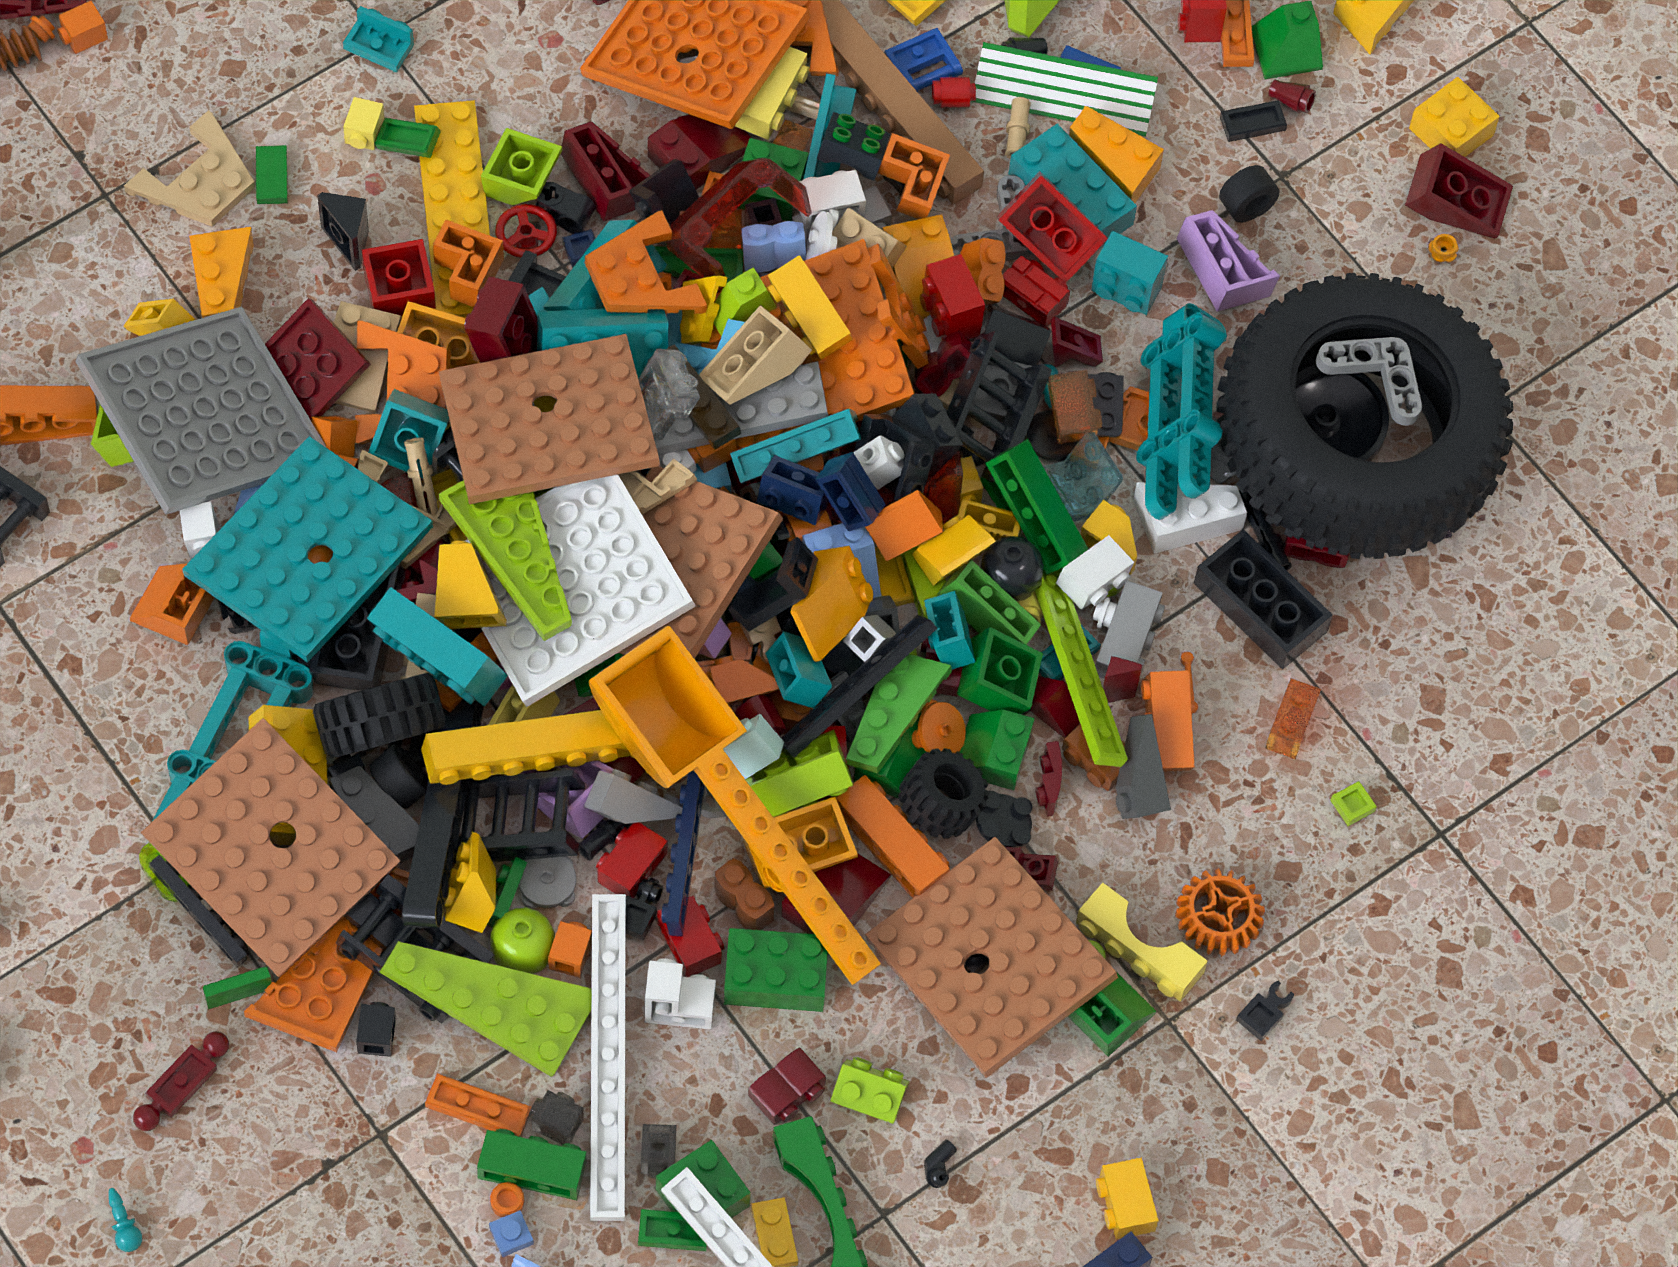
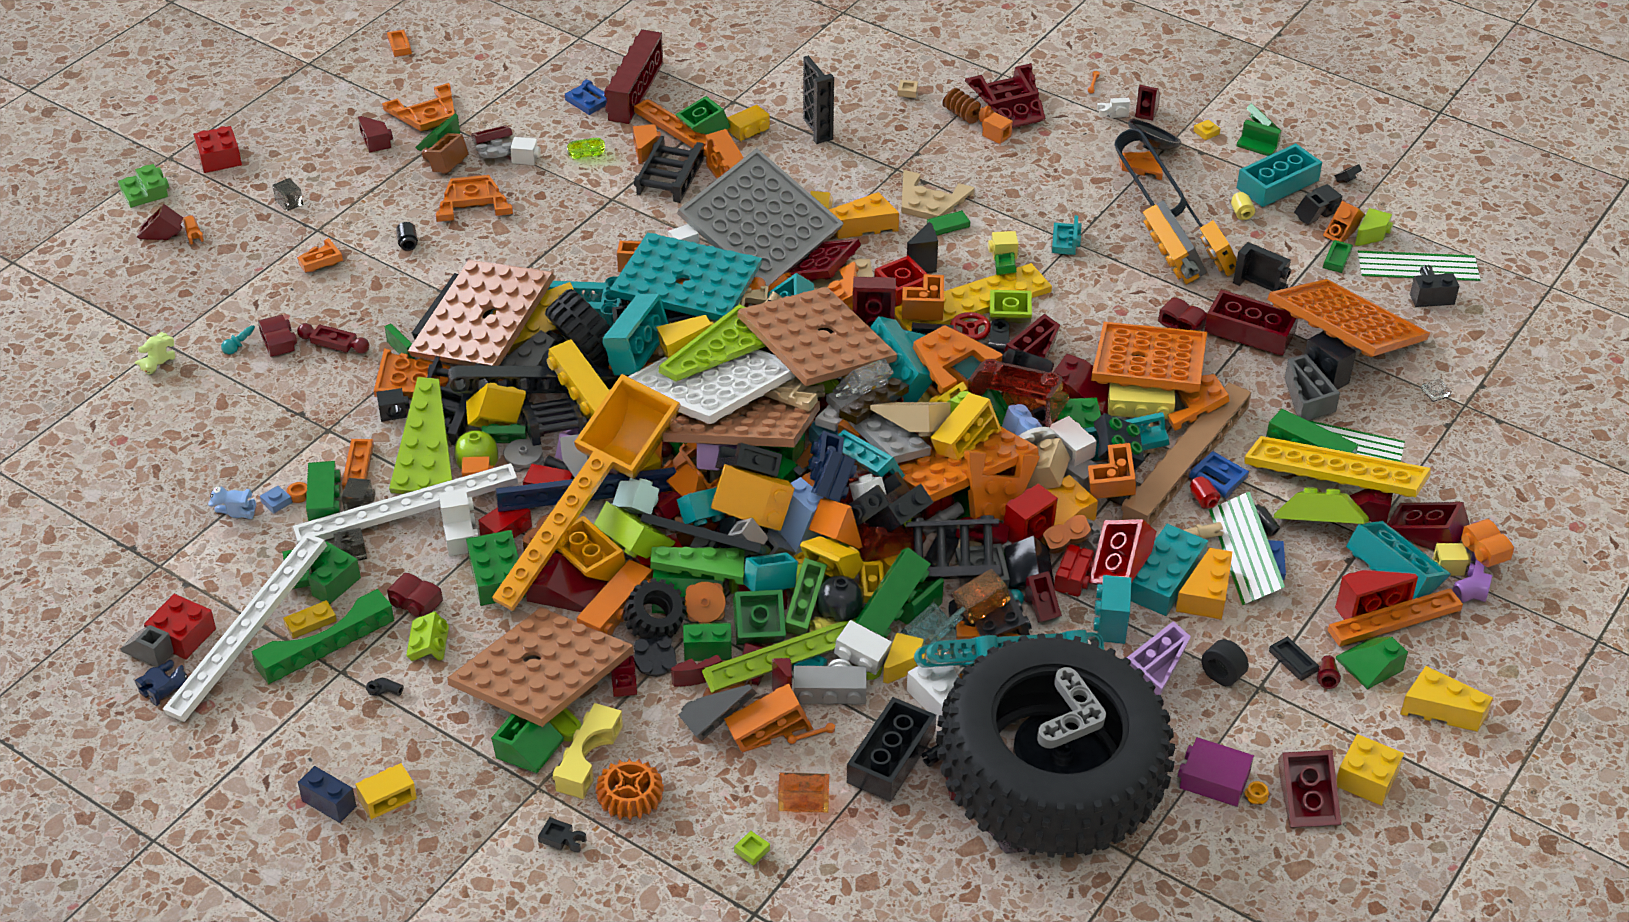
camera: 75 degrees right, 20 degrees down
(142, 1160) = (277, 335): none -> dark red brick
(1412, 260) = (1215, 771): none -> magenta brick

